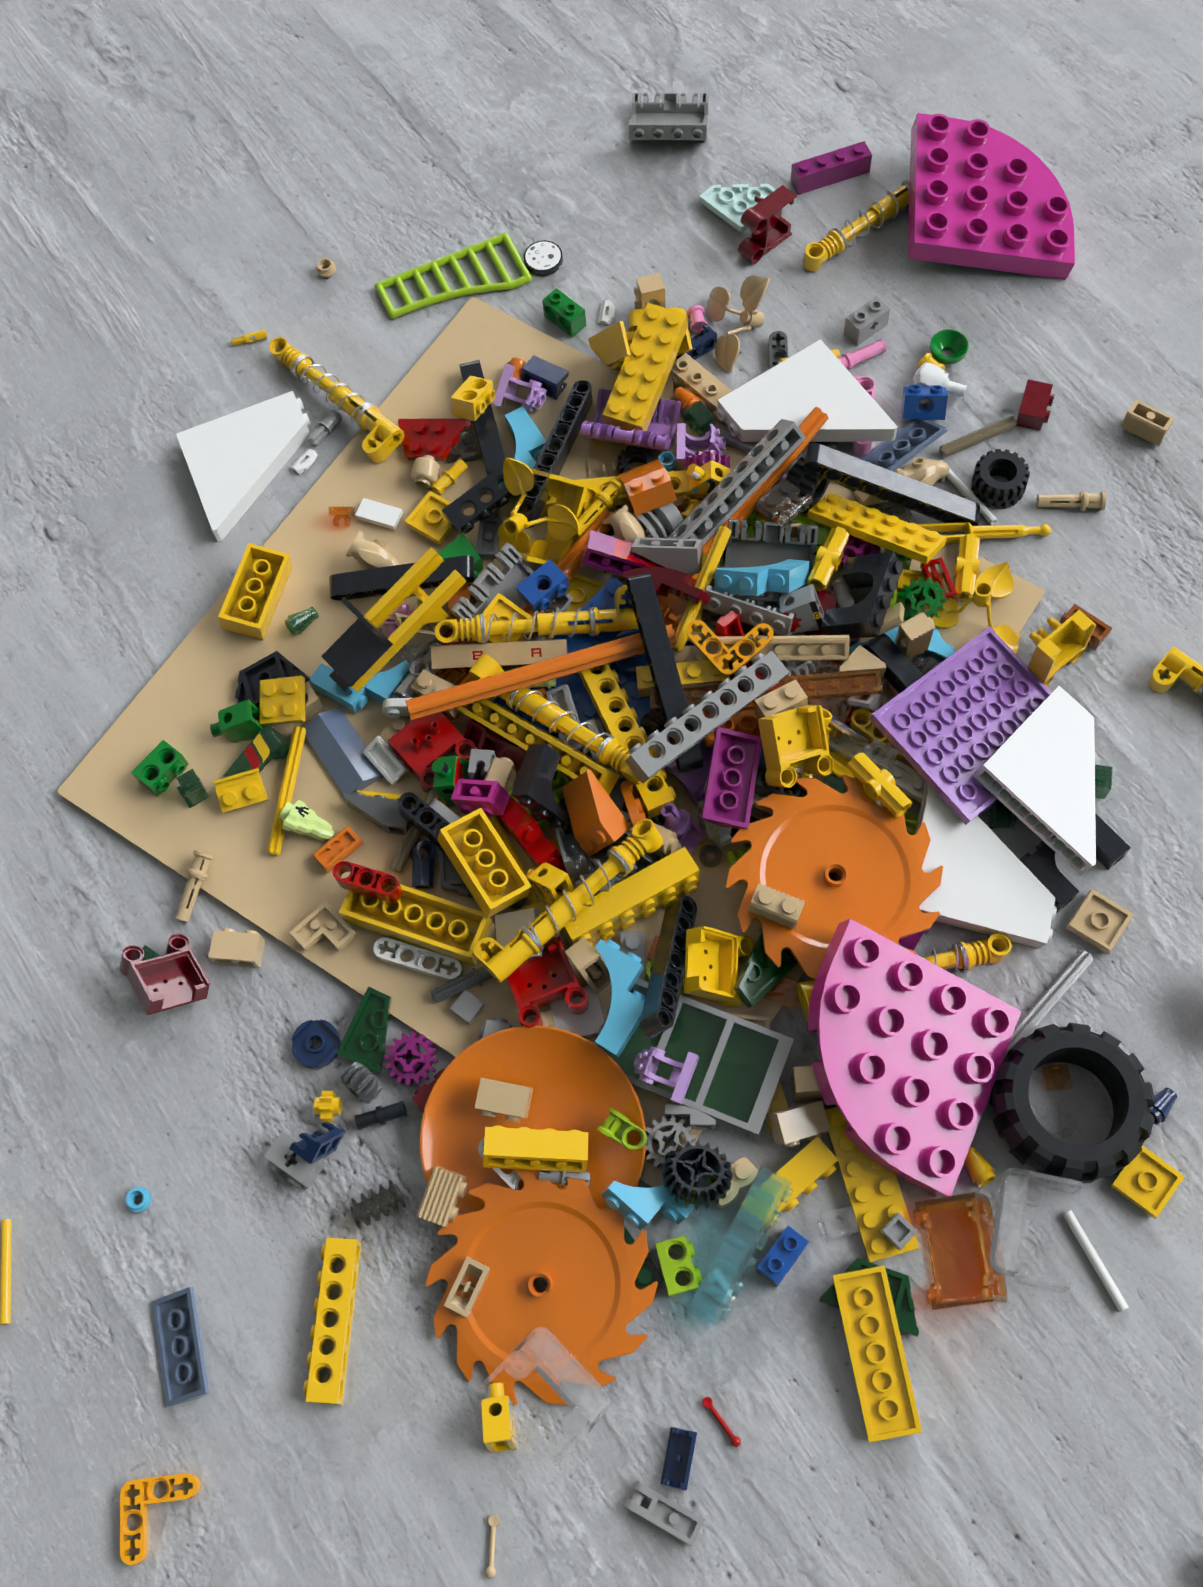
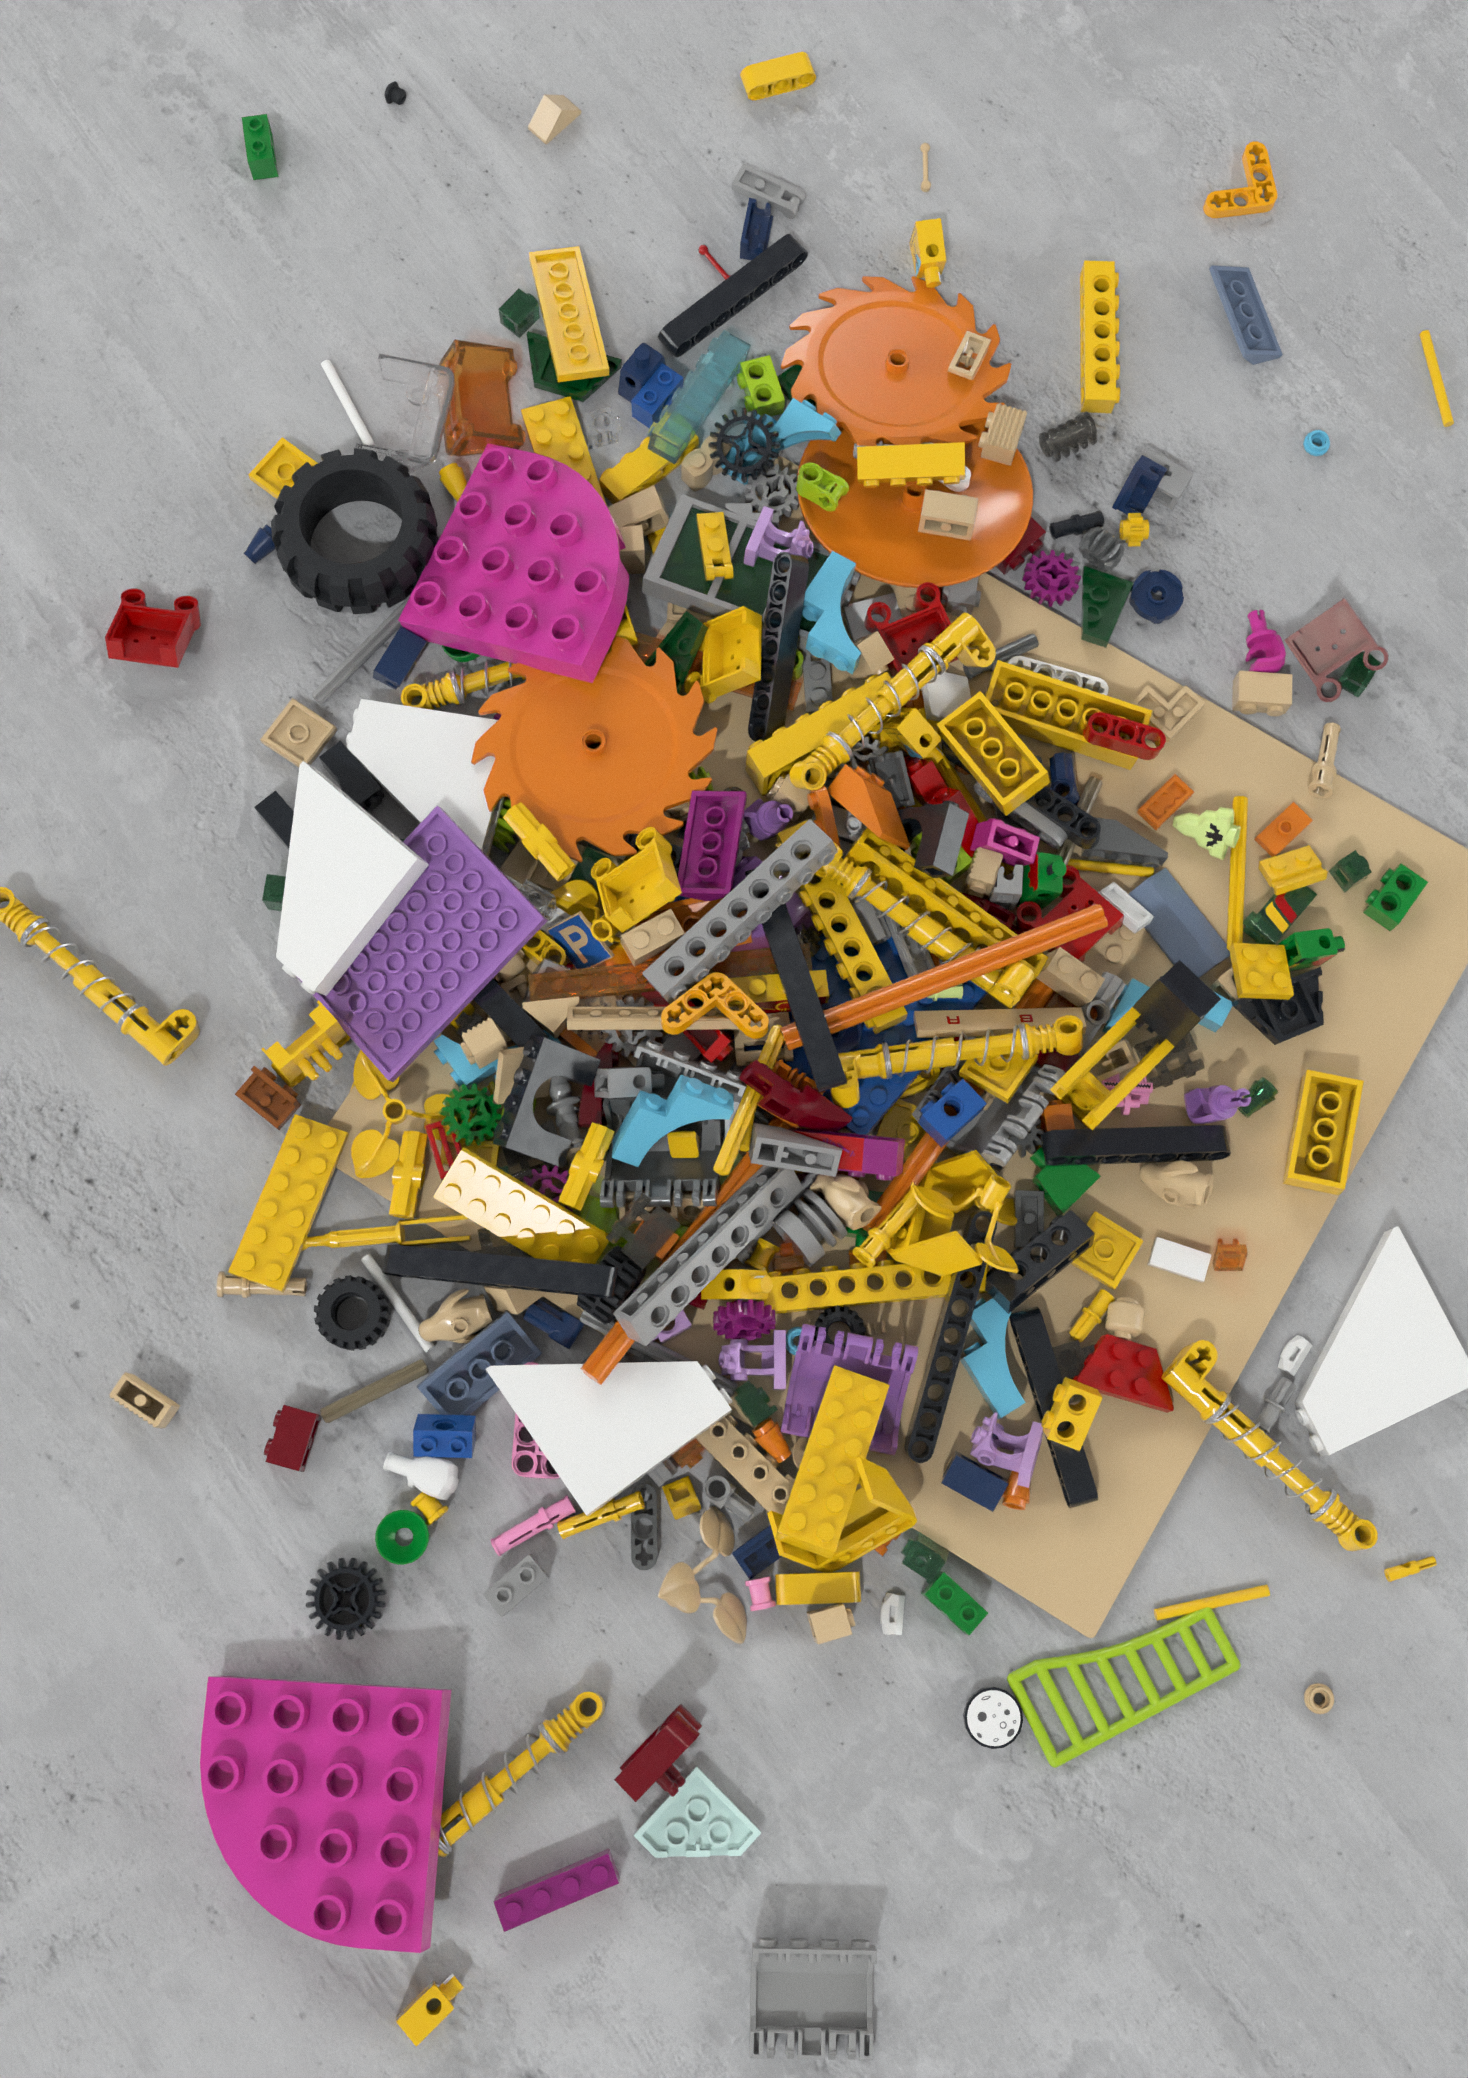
camera: 165 degrees right, 10 degrees up
(221, 982) = (1264, 645): none -> dark pink piece
(241, 827) = (1283, 830): none -> orange plate
(333, 609) = (1214, 1103): none -> medium lavender piece
(388, 319) = (1212, 1602): none -> yellow bar
(395, 707) = (1119, 964): white plate -> none
(467, 1007) = (998, 630): light grey tile -> none
(566, 1376) = (873, 286): clear windscreen -> none
(578, 336) = (933, 1553): none -> clear green brick
(648, 487) = (825, 1266): orange slope -> none
(703, 1379) = (732, 295): none -> black beam
(724, 372) = (730, 1499): none -> light grey axle
(726, 1072) = (714, 545): none -> yellow plate
(749, 373) = (681, 1497): none -> yellow slope
(776, 906) = (661, 696): tan brick -> none
(796, 1282) = (638, 370): none -> dark blue torso
(898, 1231) = (541, 416): light grey tile -> none
(905, 109) = (418, 2020): none -> yellow torso
(927, 1360) = (519, 312): none -> clear green brick
(984, 318) = (356, 1608): none -> black gear
(1018, 985) = (398, 658): none -> dark blue hinge
(1057, 550) = (288, 1203): none -> yellow plate

